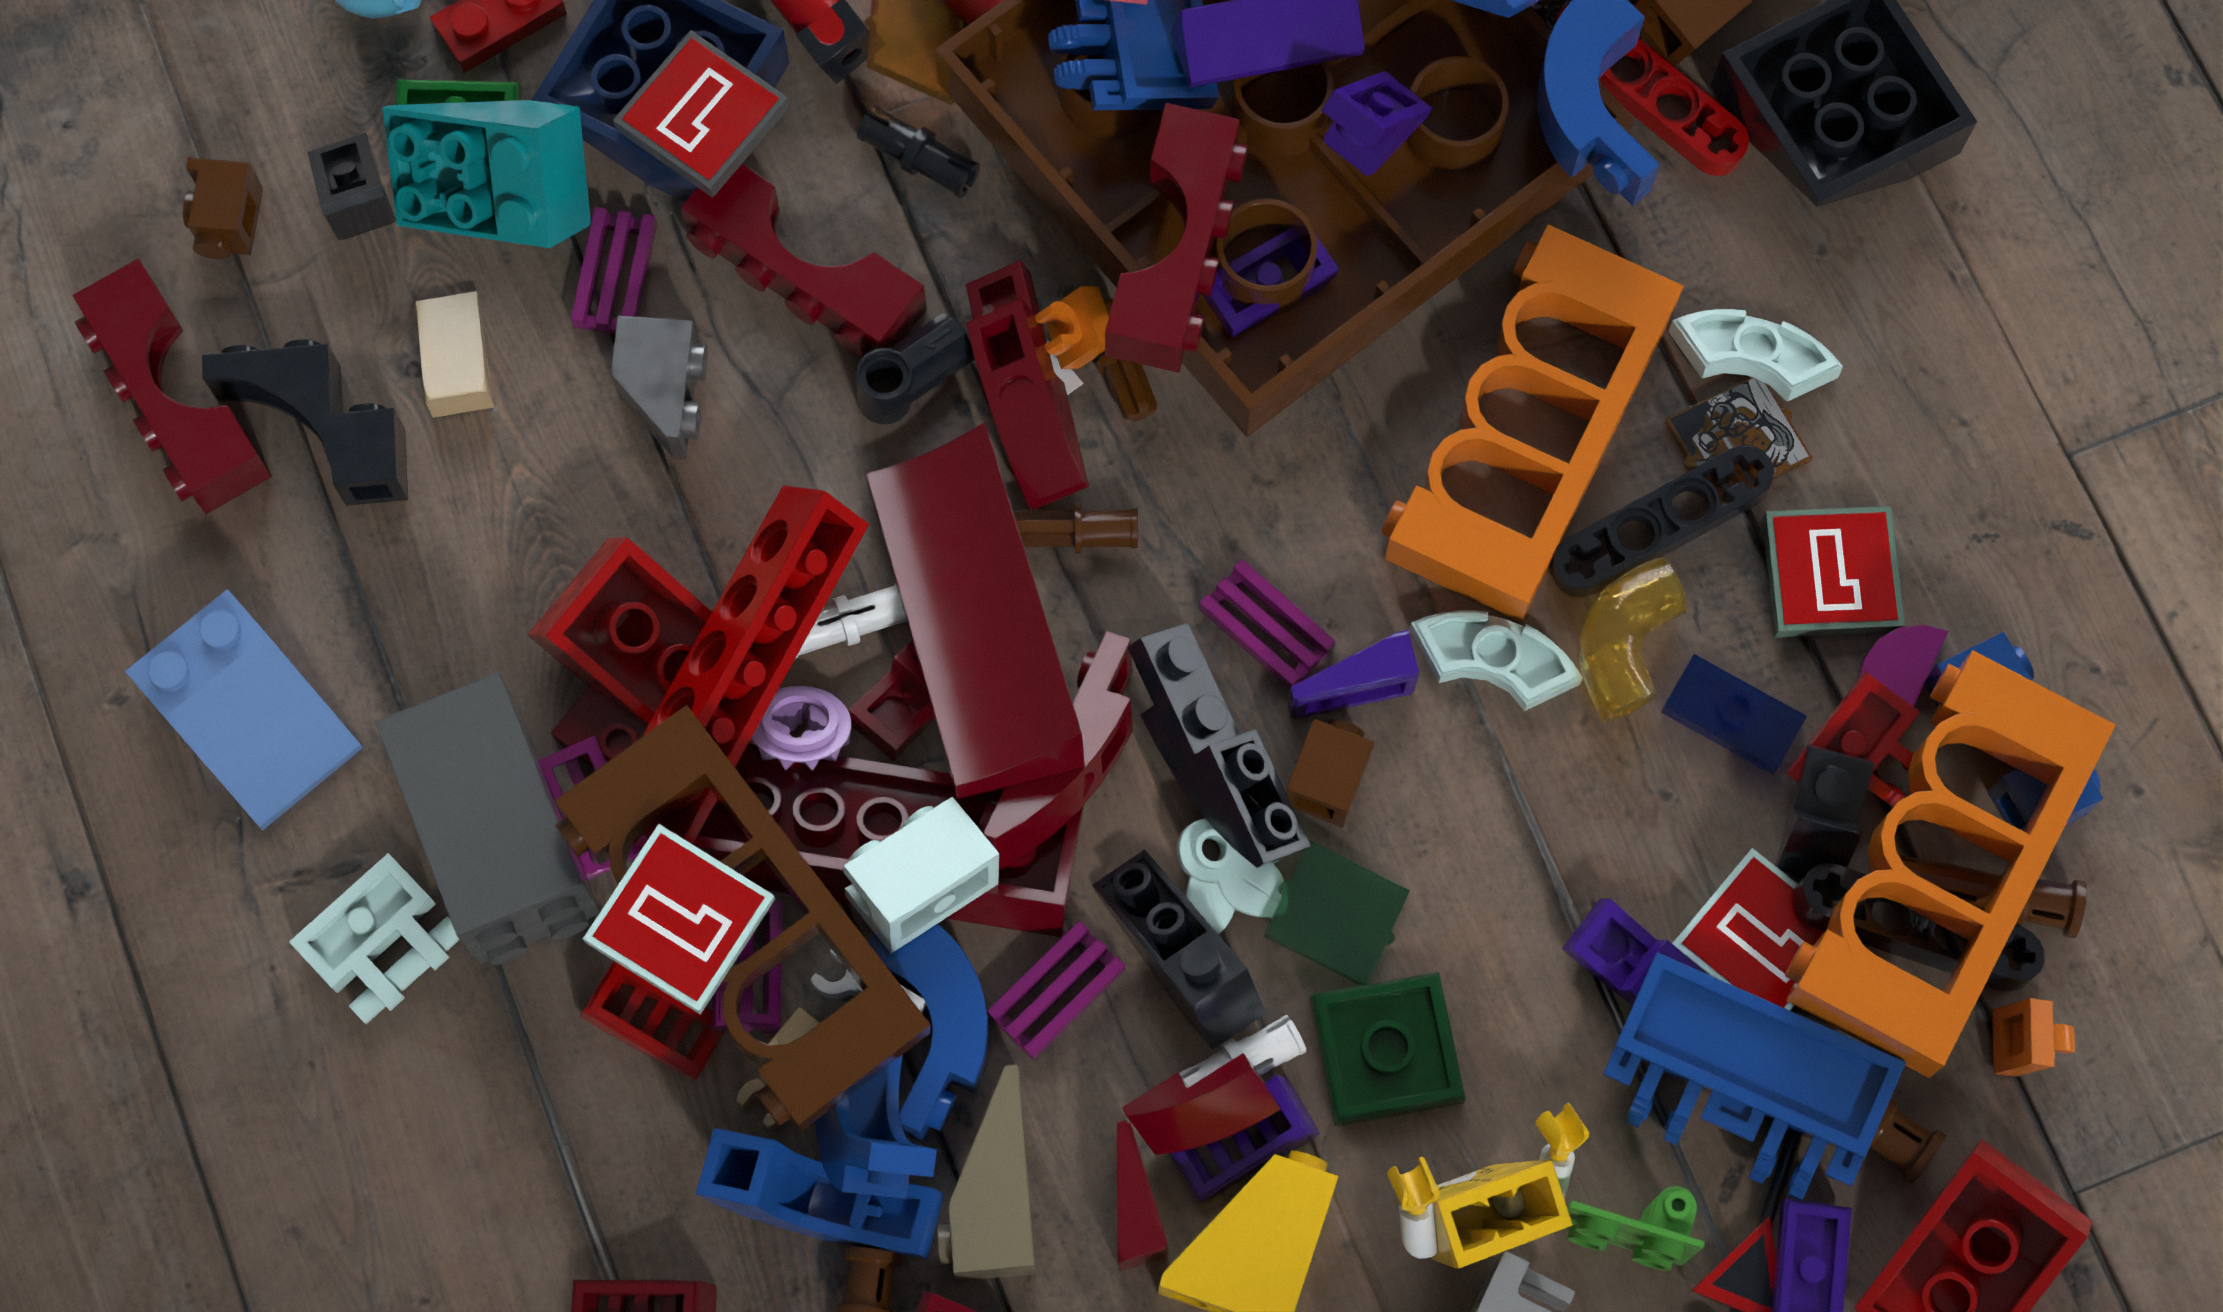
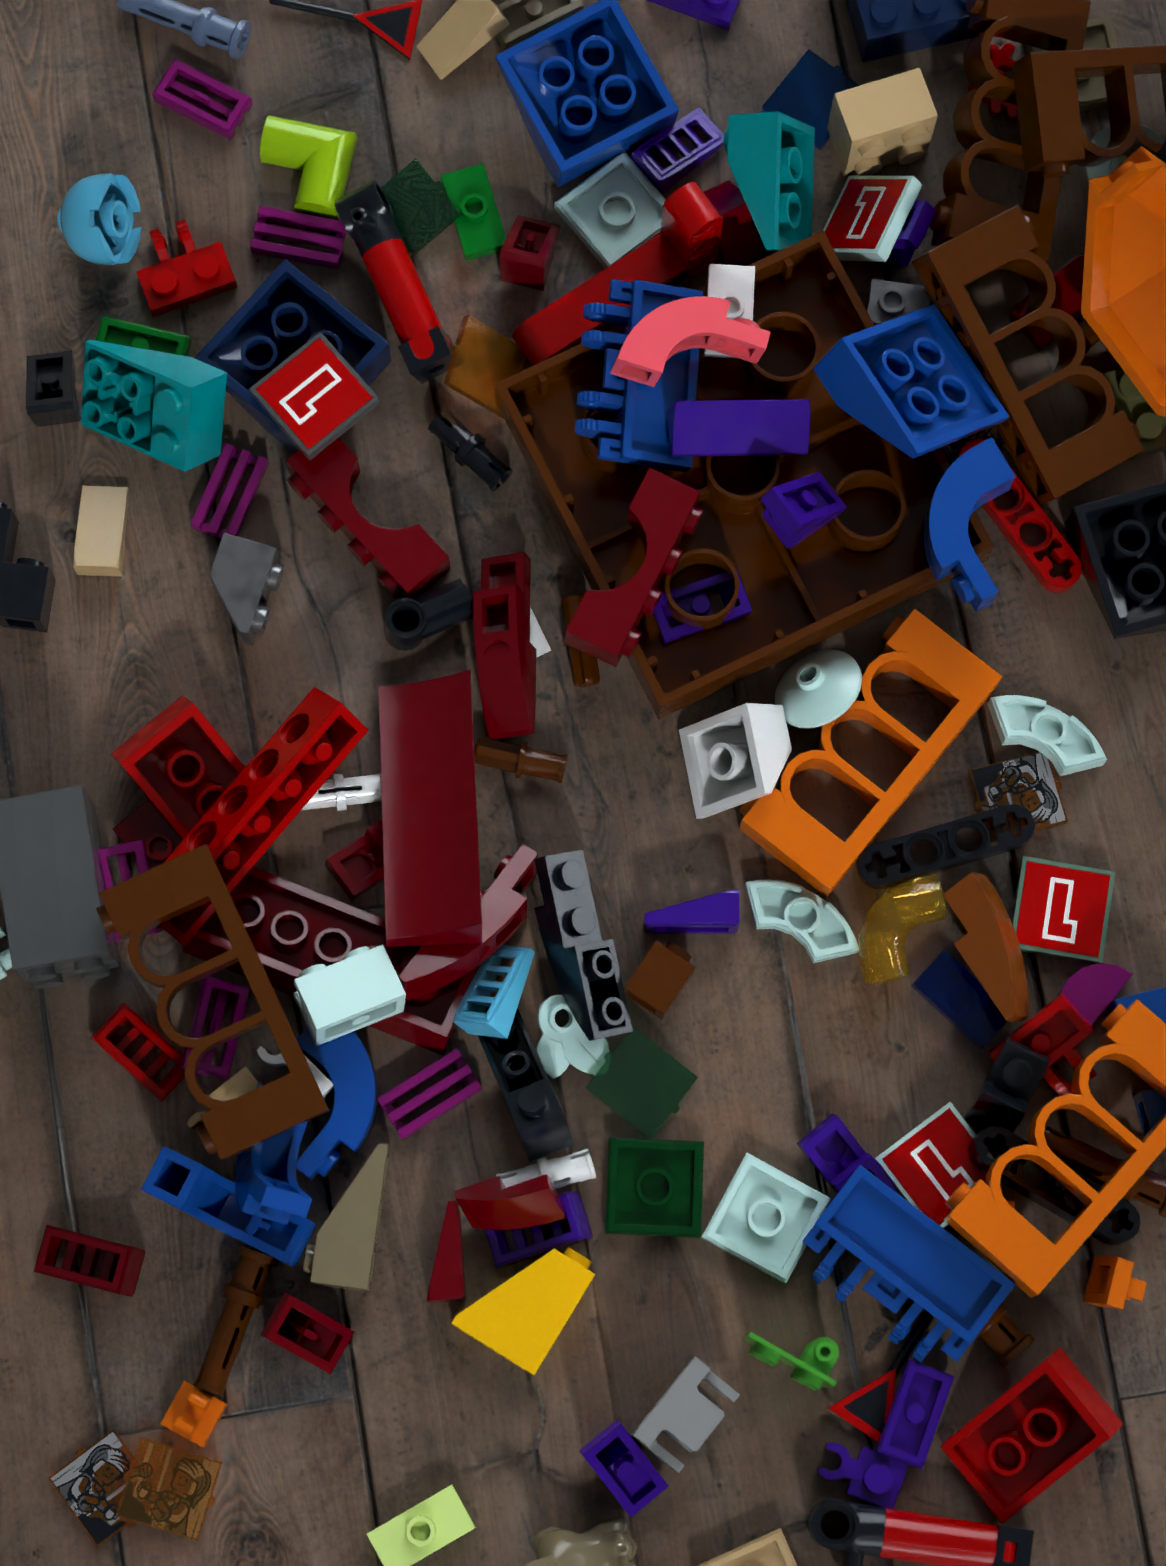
camera: 10 degrees right, 5 degrees up
(679, 919) = (167, 997): red tile -> none
(827, 722) = (309, 870): lavender gear -> none
(1076, 327) = (553, 609): orange tile -> none
(1128, 868) = (502, 1009): none -> medium azure slope
(1284, 608) = (619, 828): magenta tile -> none
(1358, 462) = (735, 756): none -> white slope
(1447, 354) = (819, 688): none -> light aqua dish
(1491, 1206) = (696, 1320): torso -> none
(1544, 1052) = (765, 1218): none -> light aqua tile
(1754, 630) = (990, 944): none -> dark orange slope

